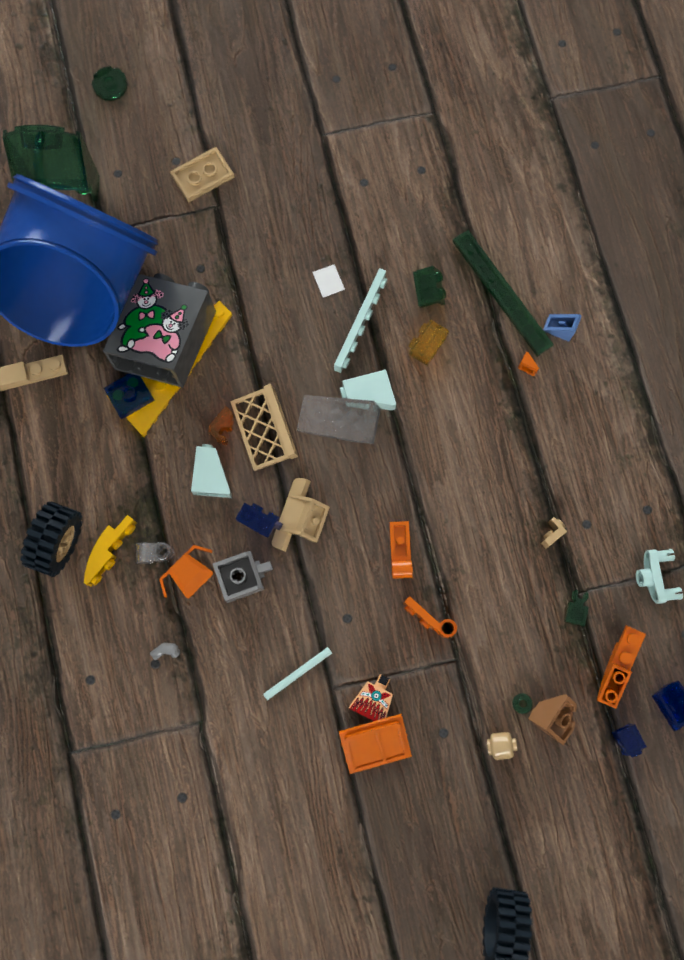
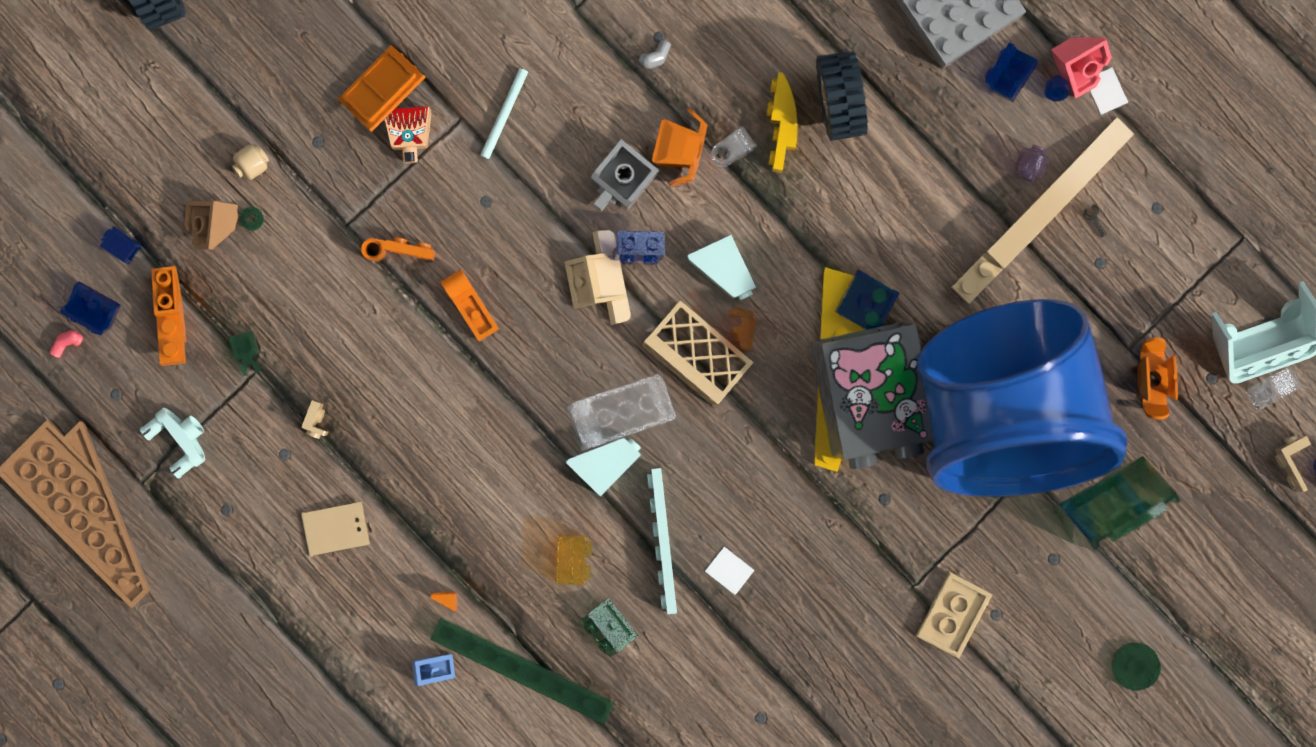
camera: 150 degrees right, 10 degrees up
(578, 453) = (335, 529): none -> tan container

